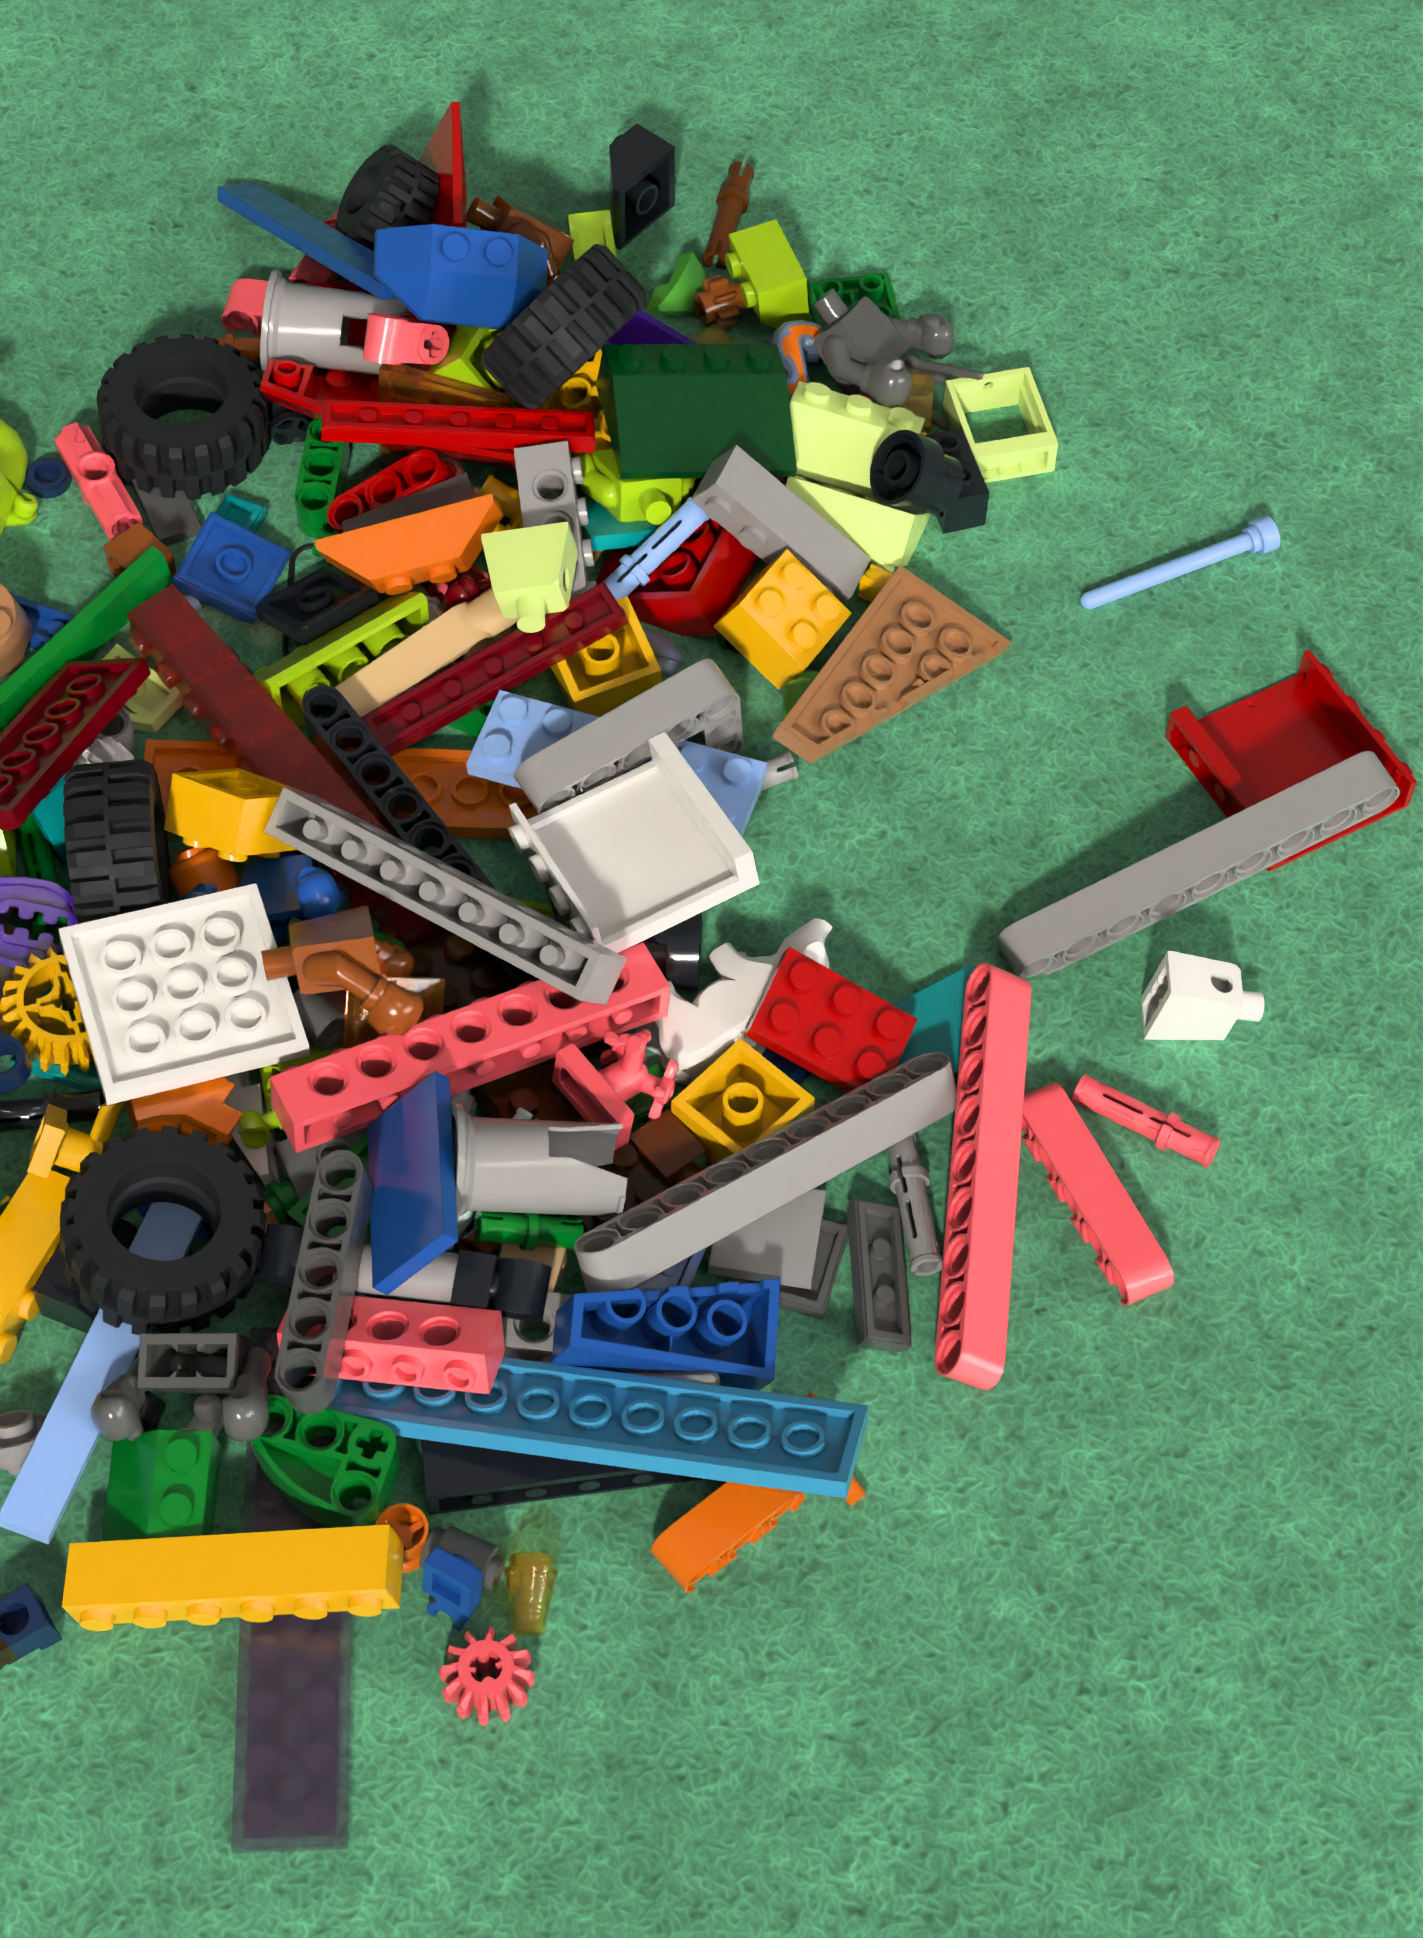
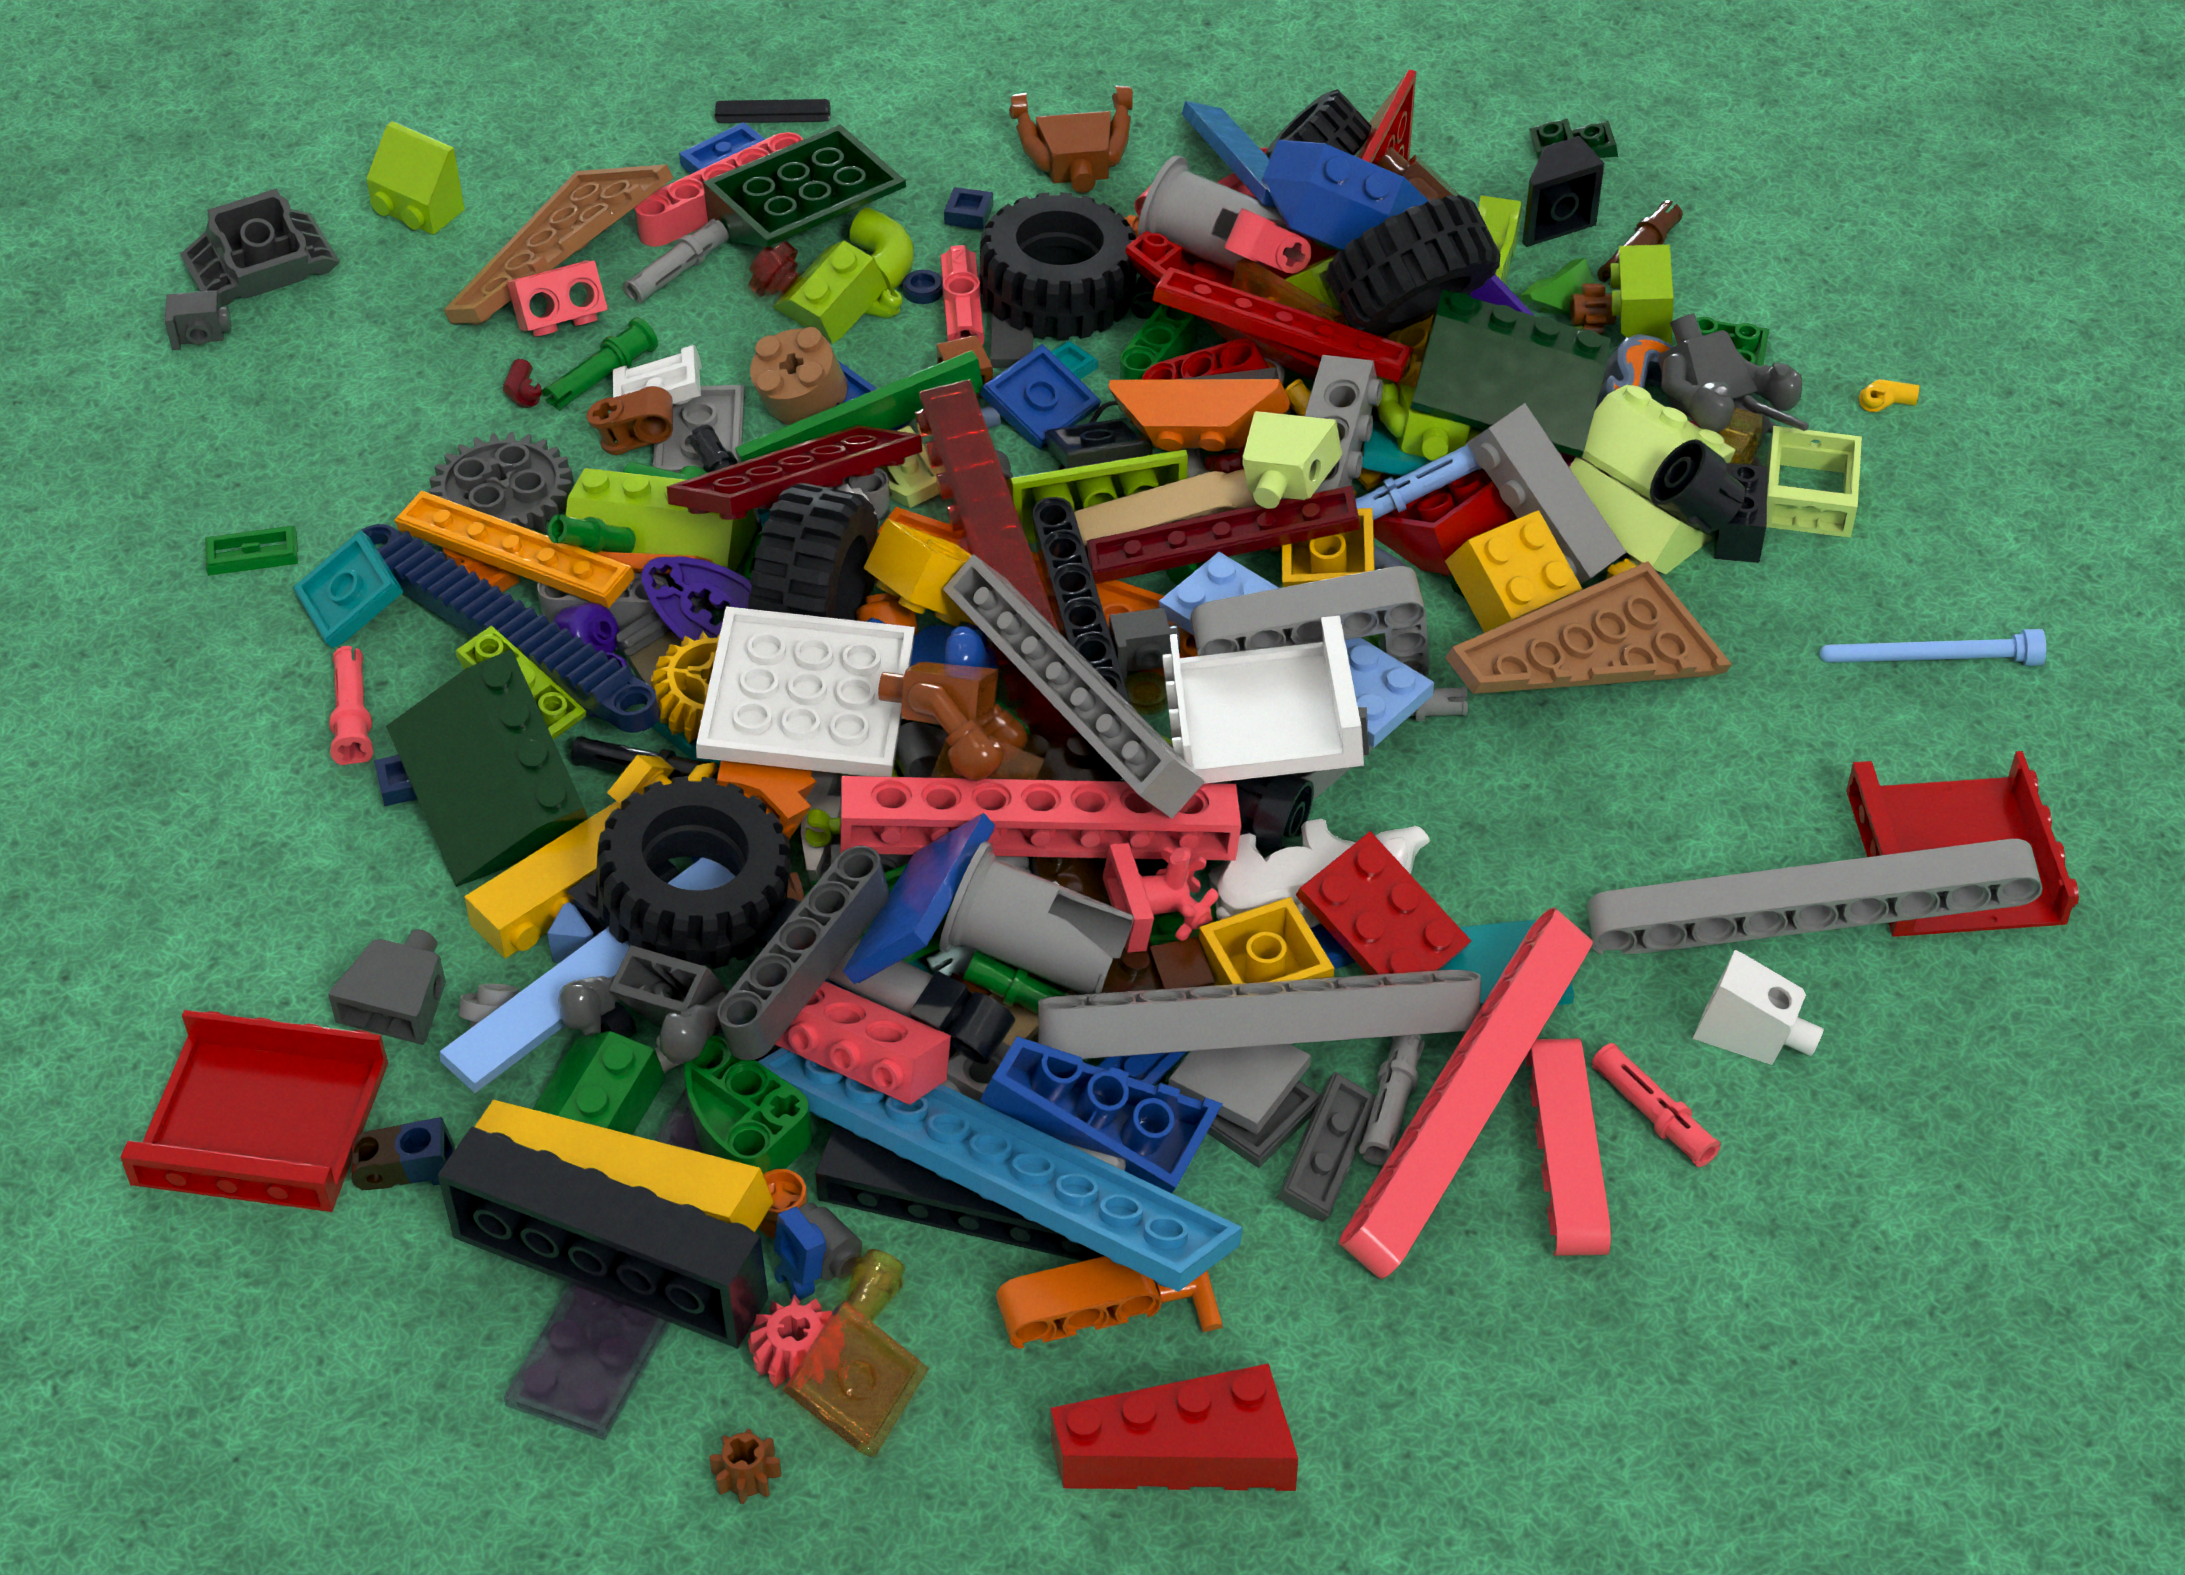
camera: 25 degrees right, 10 degrees down
(53, 374) = (968, 208): none -> dark blue plate
(54, 1332) = (568, 933): none -> medium blue slope
(130, 269) = (1076, 145): none -> dark orange torso
(262, 1650) = (605, 1236): none -> black brick
(470, 808) = (1141, 639): none -> dark grey brick
(490, 855) = (1147, 692): none -> clear orange tile
(508, 1835) = (745, 1465): none -> dark orange gear
(565, 1692) = (856, 1379): none -> clear orange tile
(601, 123) = (1596, 136): none -> dark green slope
(896, 1619) = (1179, 1436): none -> red wedge
(1020, 307) = (1885, 393): none -> yellow arm

